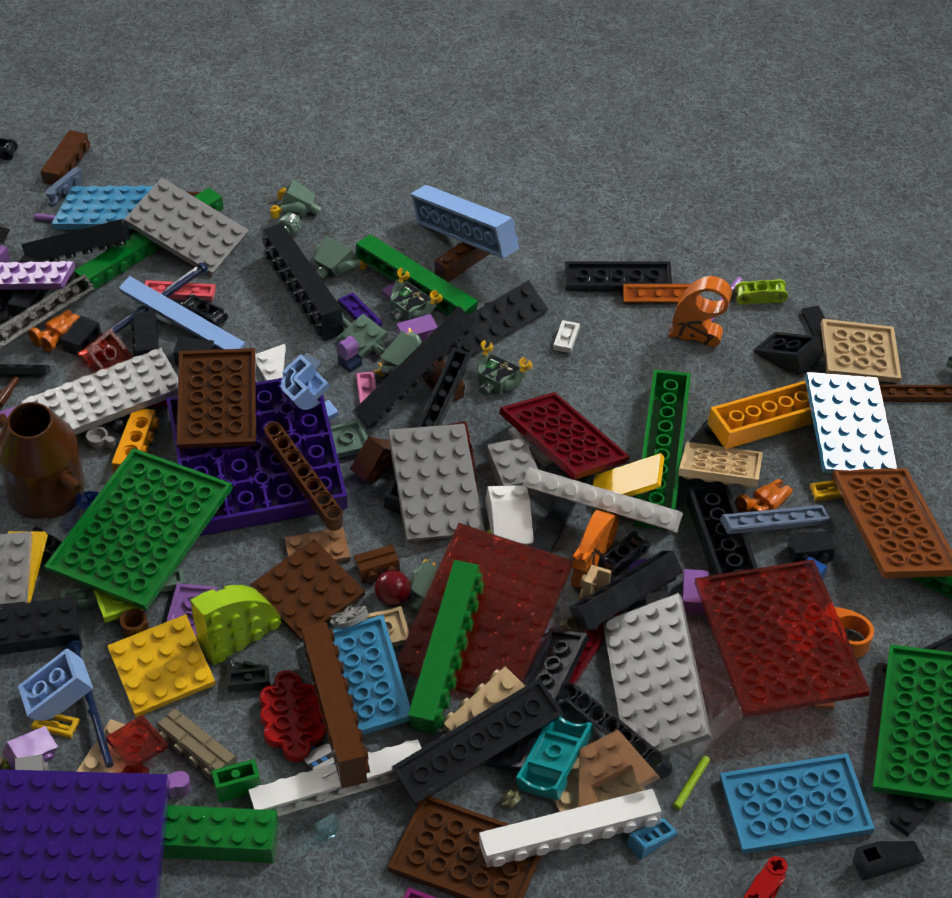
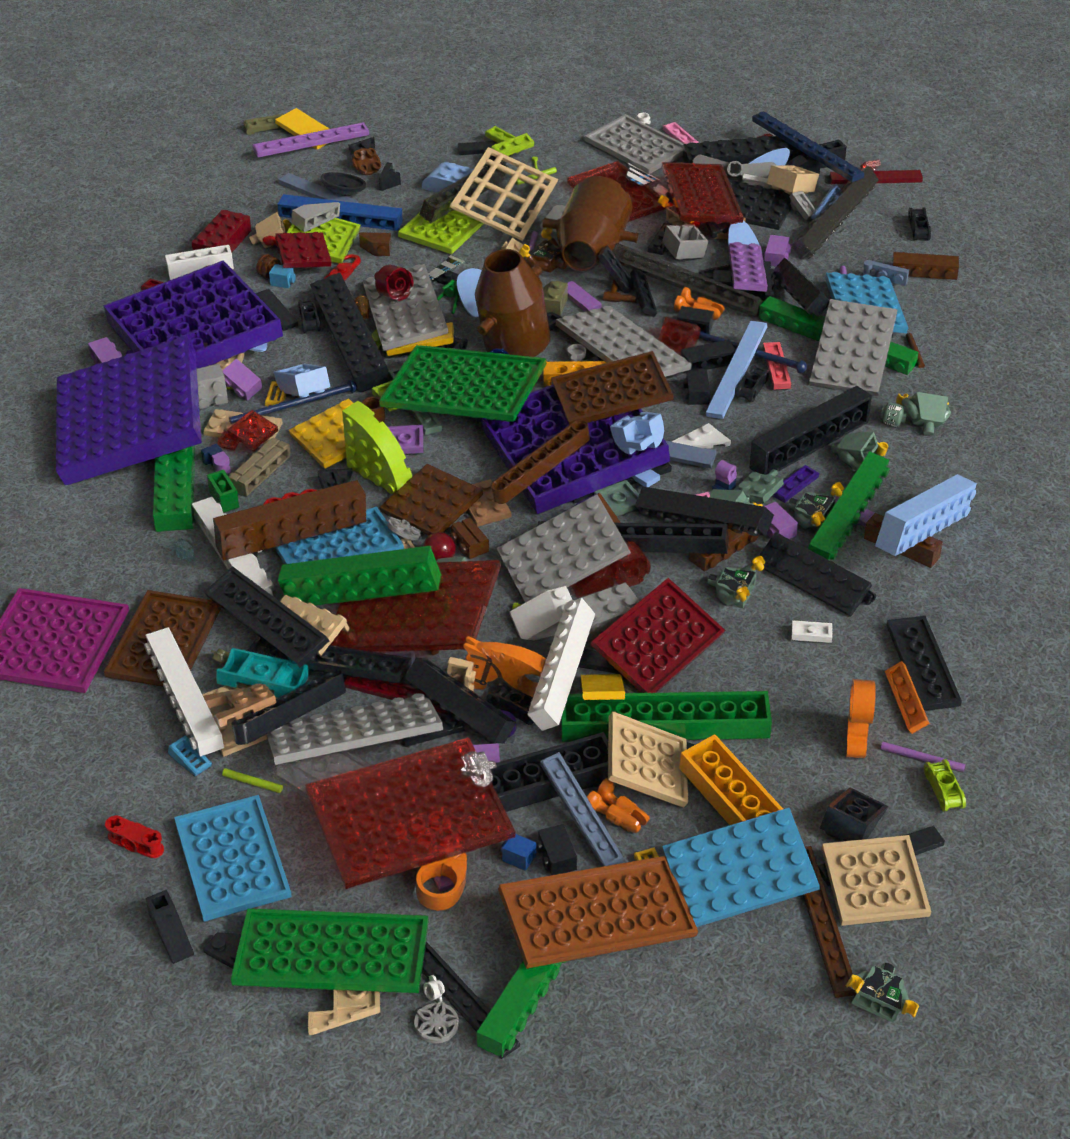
camera: 80 degrees right, 5 degrees down
(754, 561) = (476, 765): none -> clear hips

